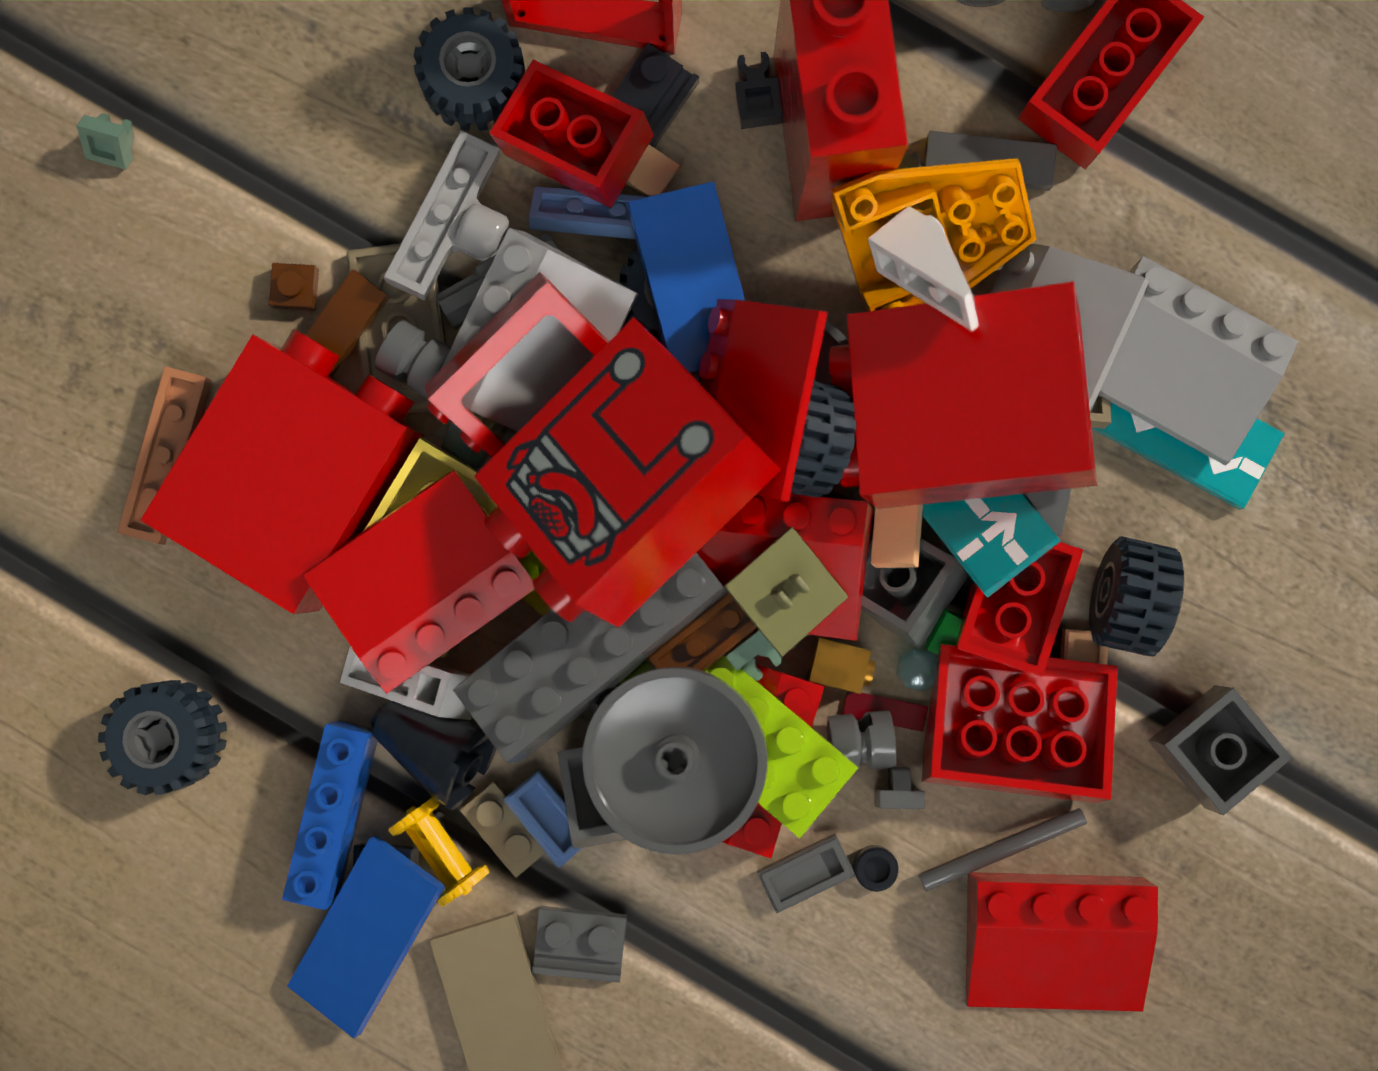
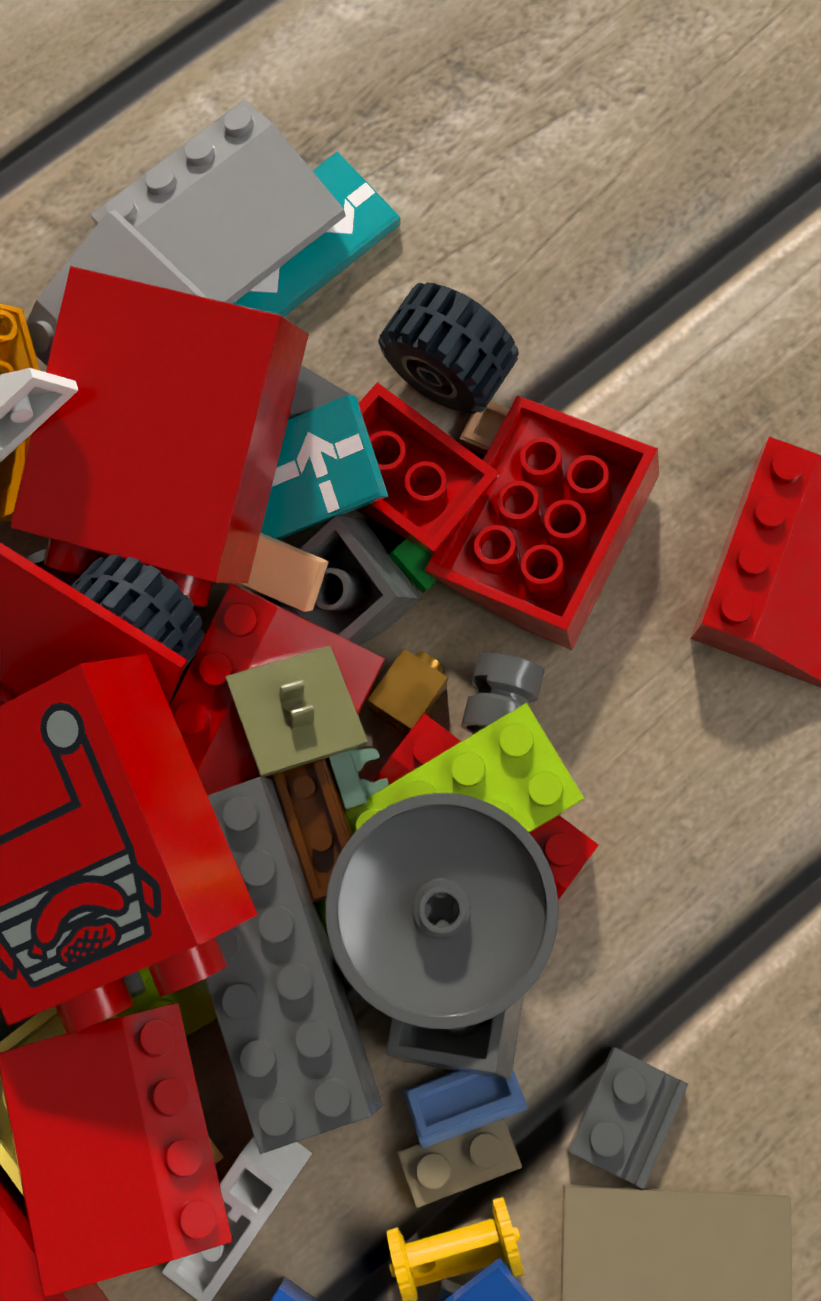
camera: 75 degrees left, 10 degrees down
(434, 750) = (329, 1210): black cone -> none
(806, 873) = (632, 817): dark grey tile -> none
(875, 868) = (652, 736): black tile -> none
(899, 792) = (574, 677): dark grey tile -> none
(903, 713) = (493, 639): dark red window -> none
(917, 669) = (445, 610): clear light blue tile -> none
(1003, 849) = (677, 592): dark grey bar -> none
(1220, 749) = (643, 325): dark grey brick -> none

